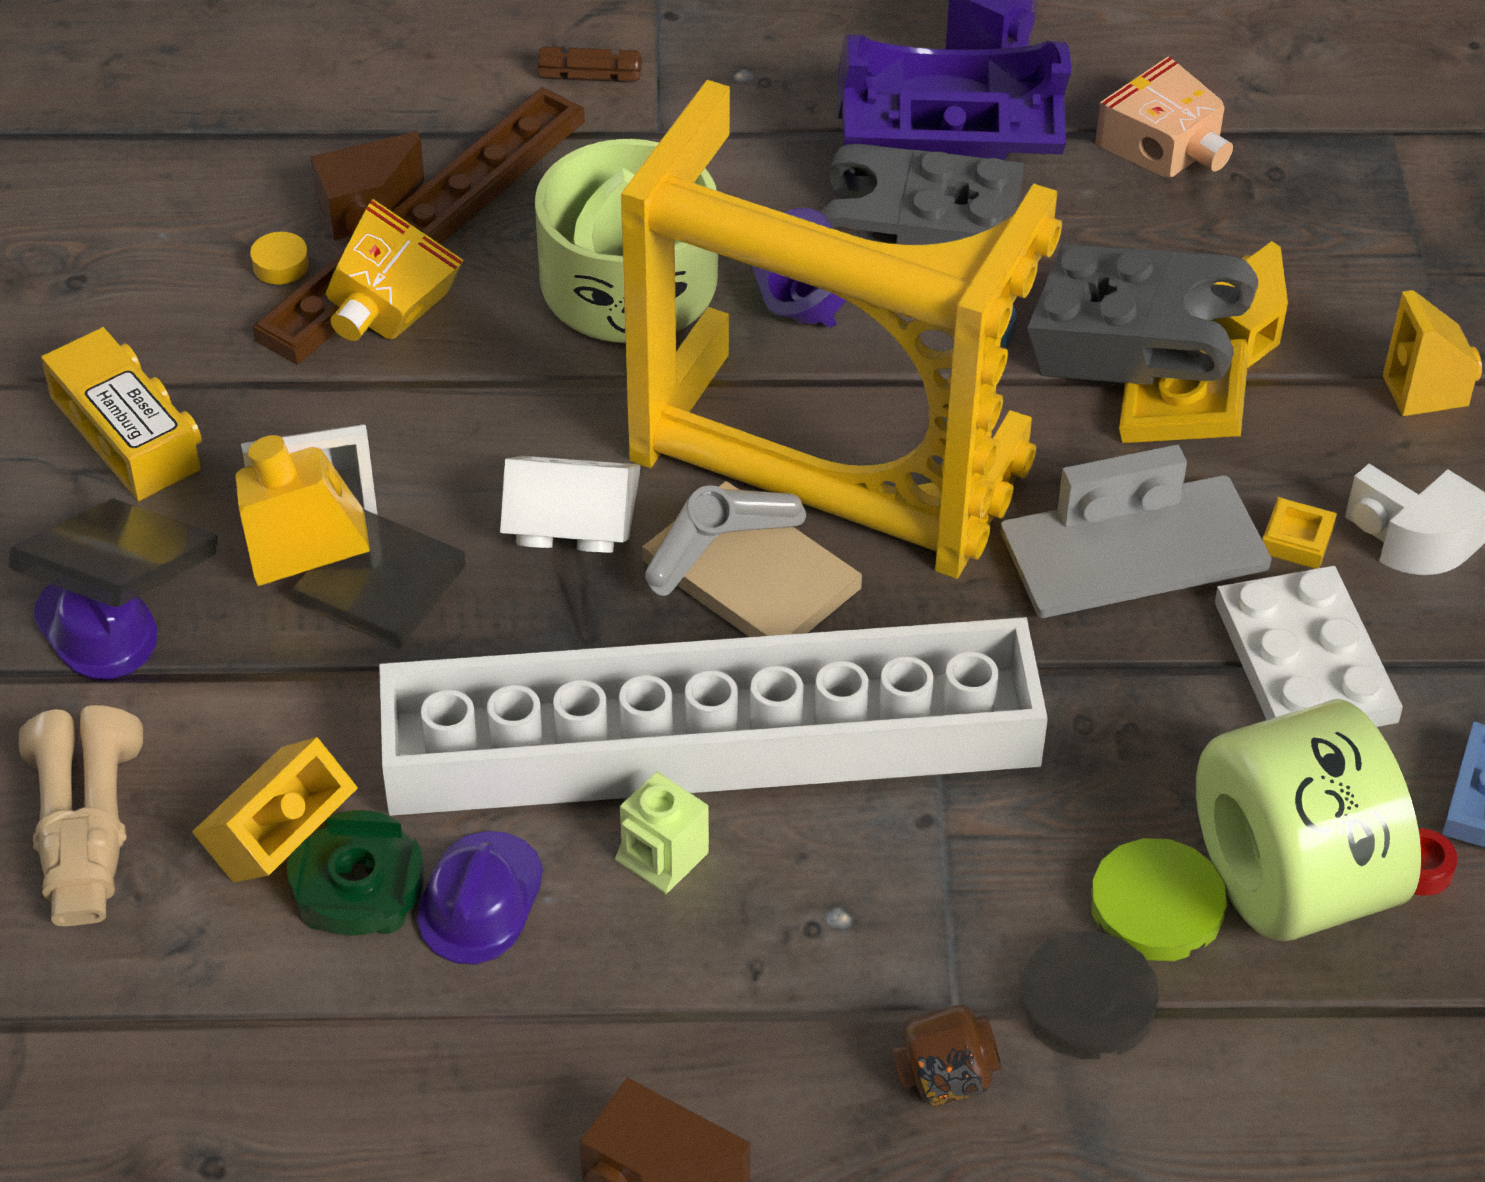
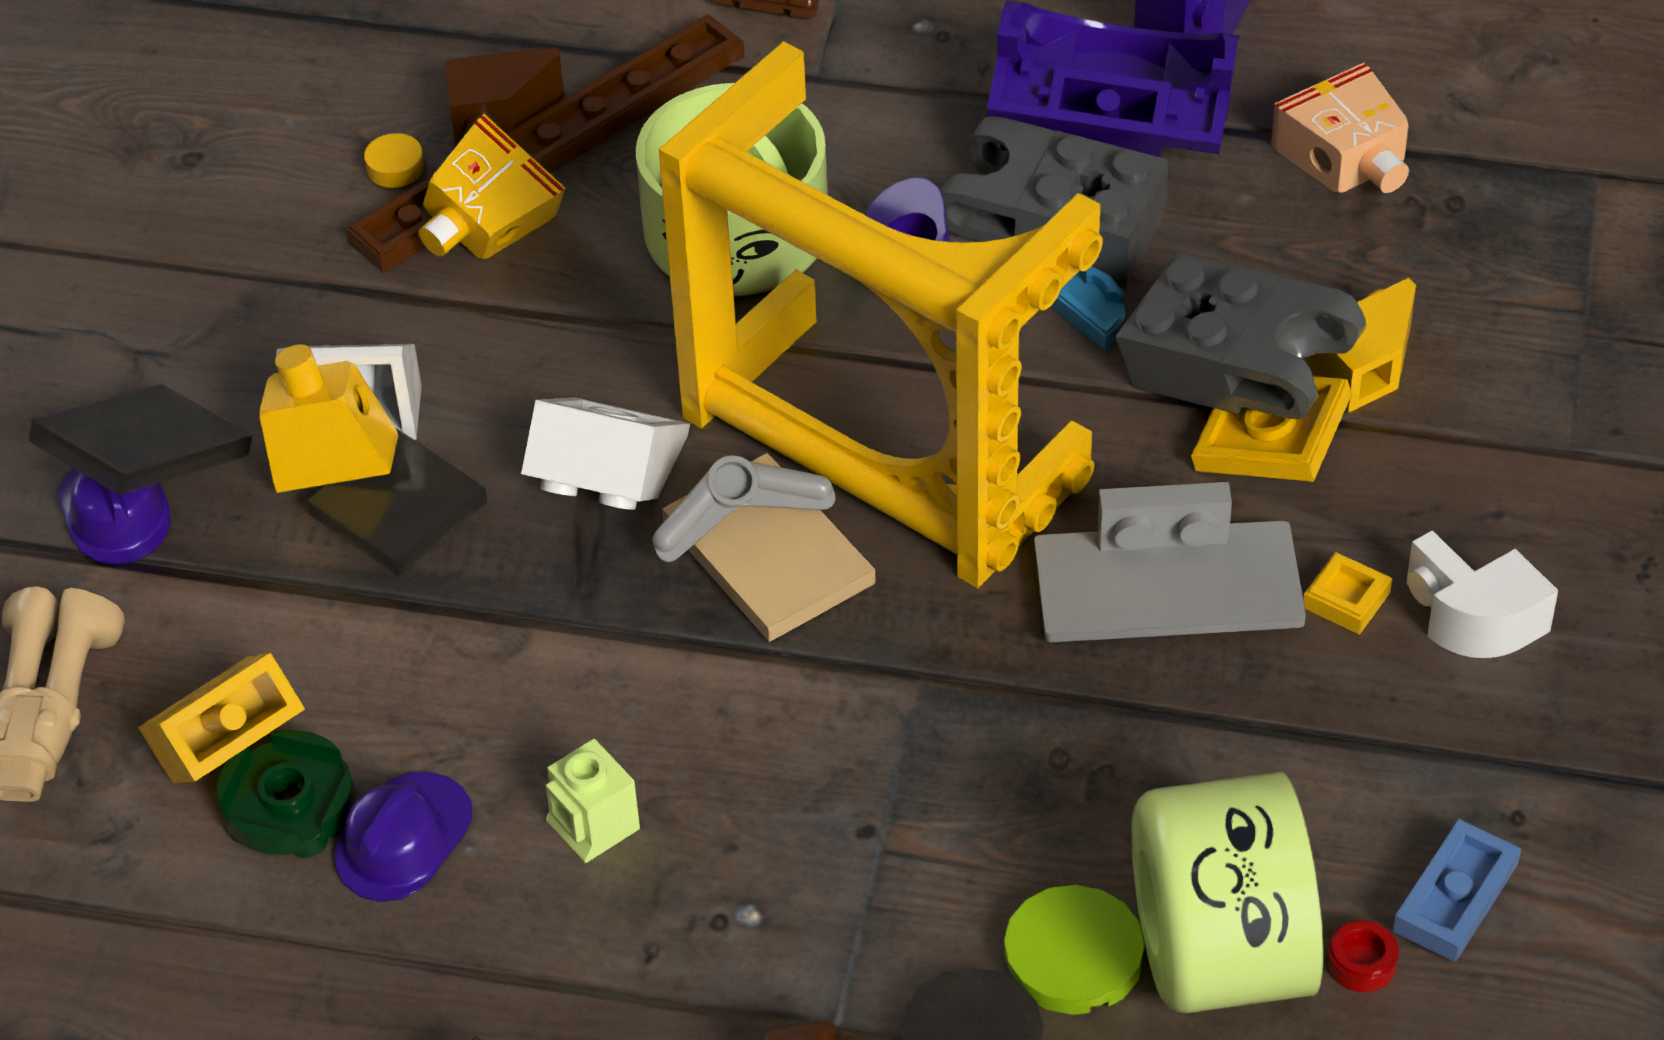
camera: 15 degrees right, 0 degrees up
(123, 413) = (194, 299): yellow brick -> none
(710, 715) = (673, 690): white brick -> none
(1305, 645) = (1316, 718): white plate -> none
(1429, 359) = (1542, 427): yellow slope -> none

